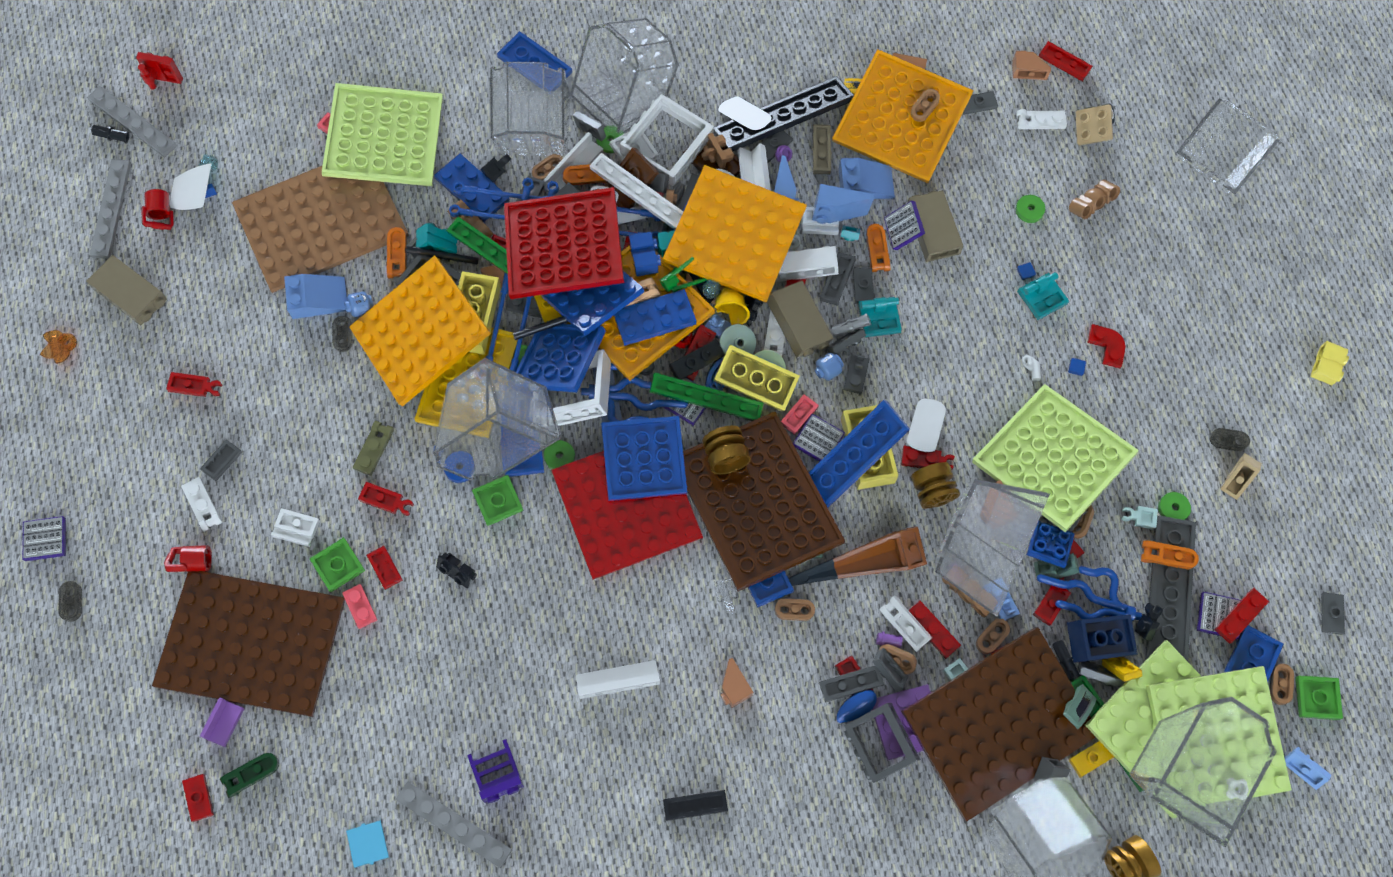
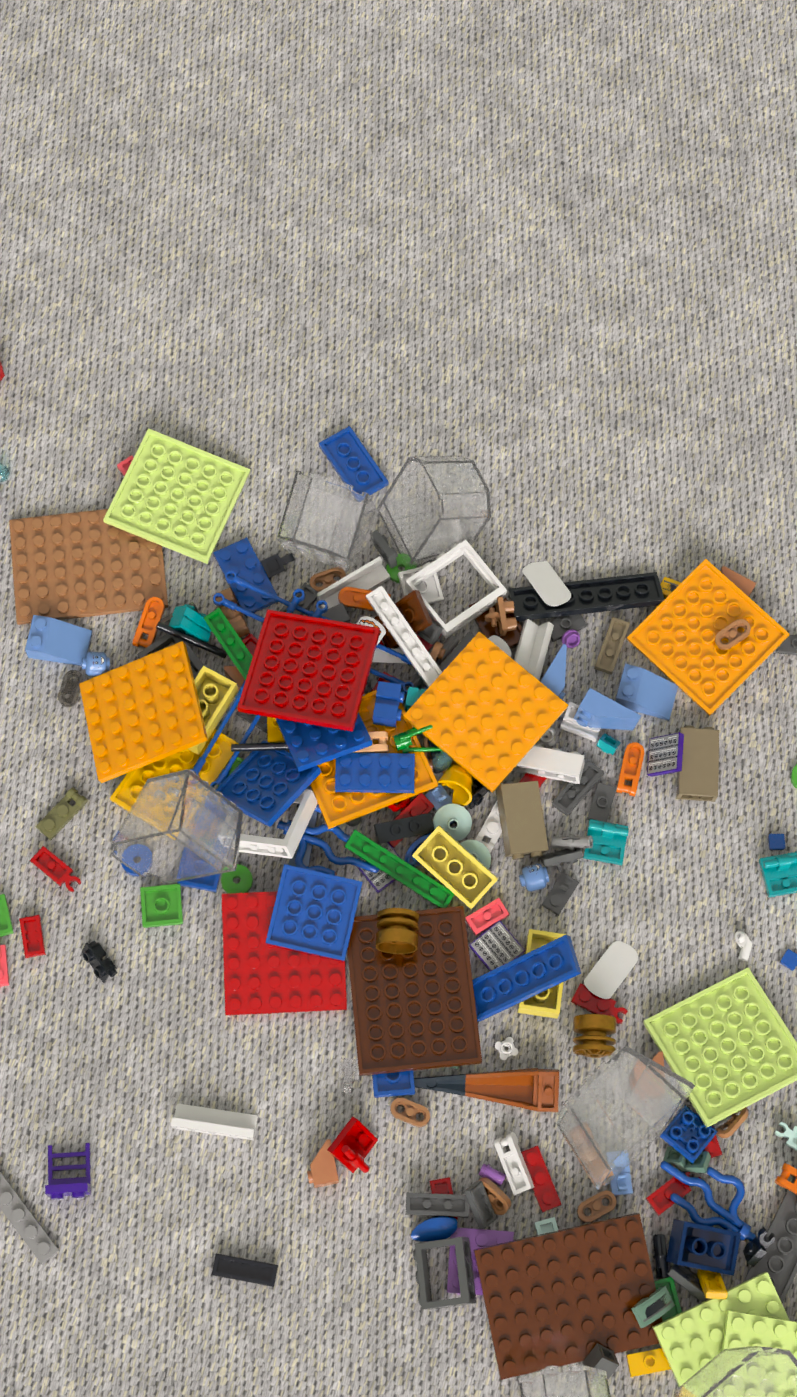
camera: 20 degrees right, 0 degrees up
(755, 656) = (353, 1146): none -> red plate
(859, 529) = (512, 1051): none -> white plate

